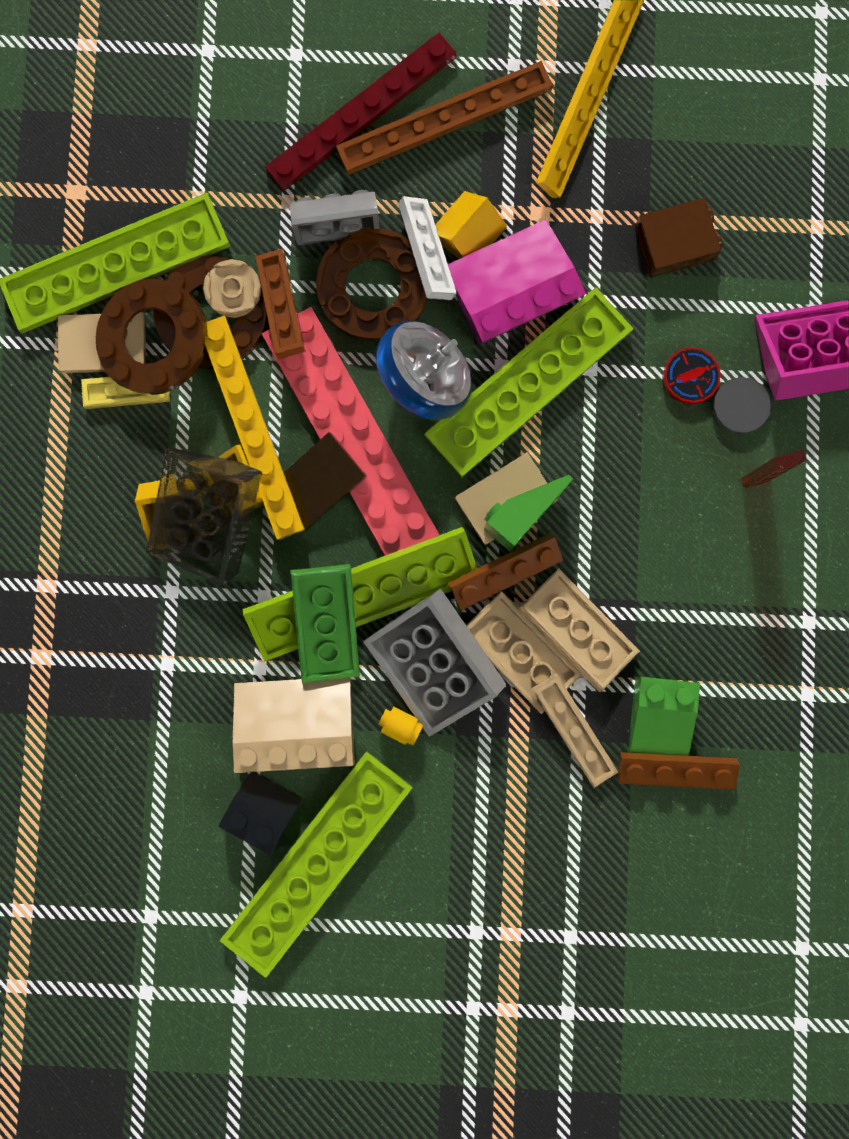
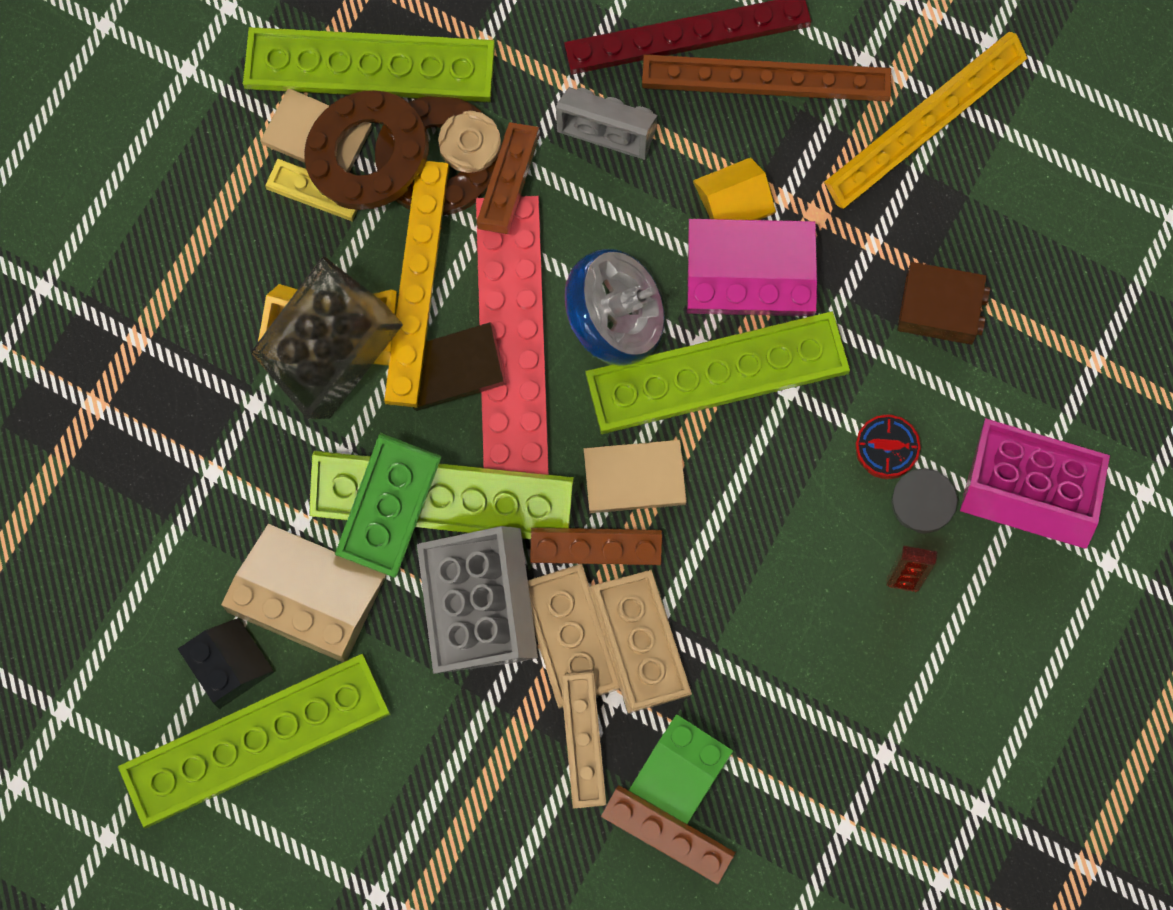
camera: 30 degrees right, 10 degrees down
(343, 257) = (617, 162): reddish brown plate -> none
(400, 726) = (409, 646): yellow brick -> none
(427, 248) = (681, 193): white plate -> none
(521, 512) = (640, 491): bright green slope -> none

